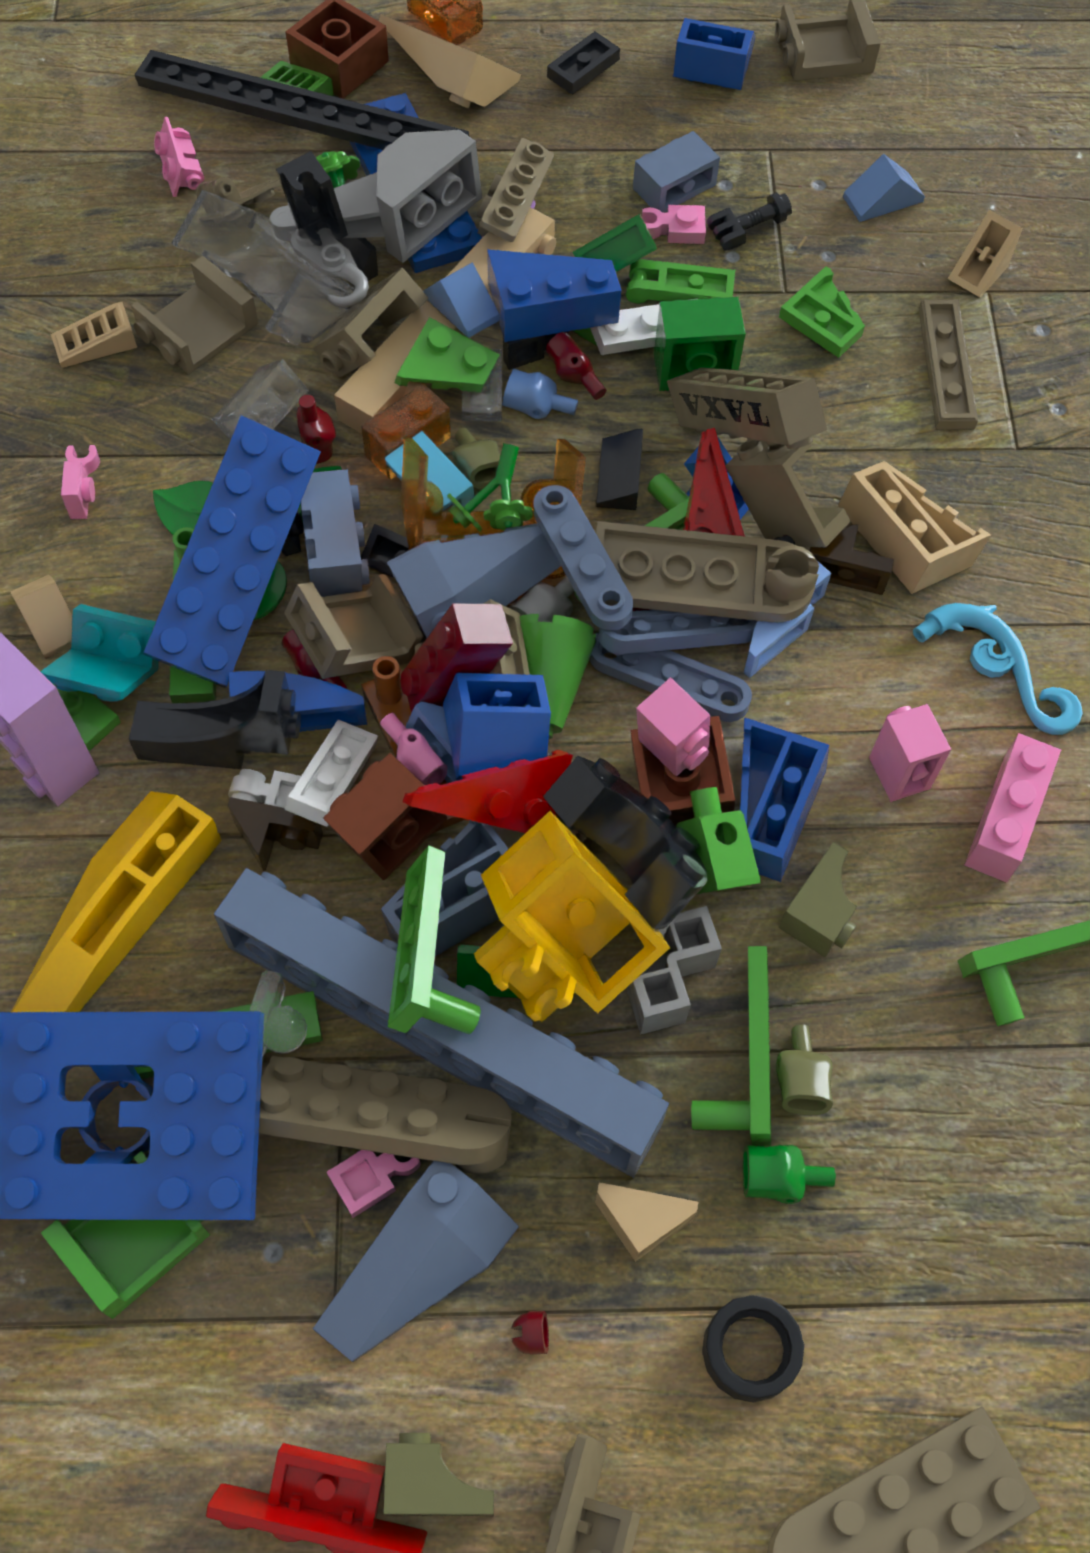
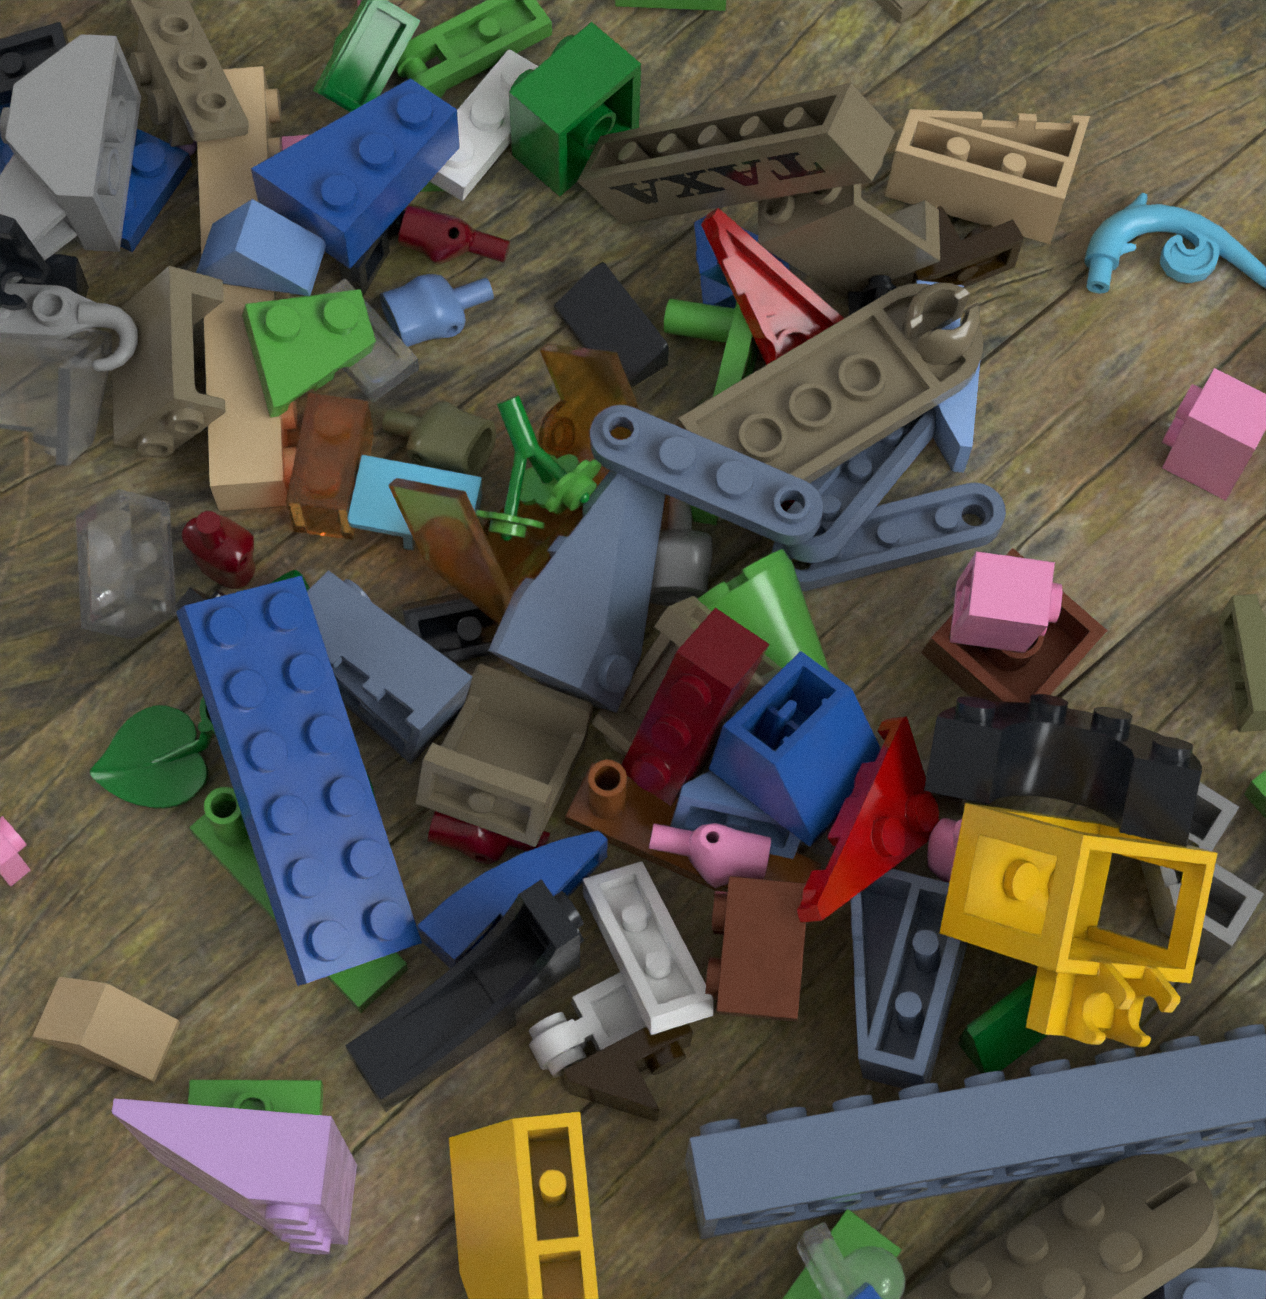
camera: 40 degrees left, 5 degrees up
(104, 654) = (246, 1023): teal bracket -> none
(415, 956) = (969, 1070): bright green piece -> none
(722, 843) = (1140, 683): bright green torso -> none
(778, 791) = (1125, 577): blue wedge -> none

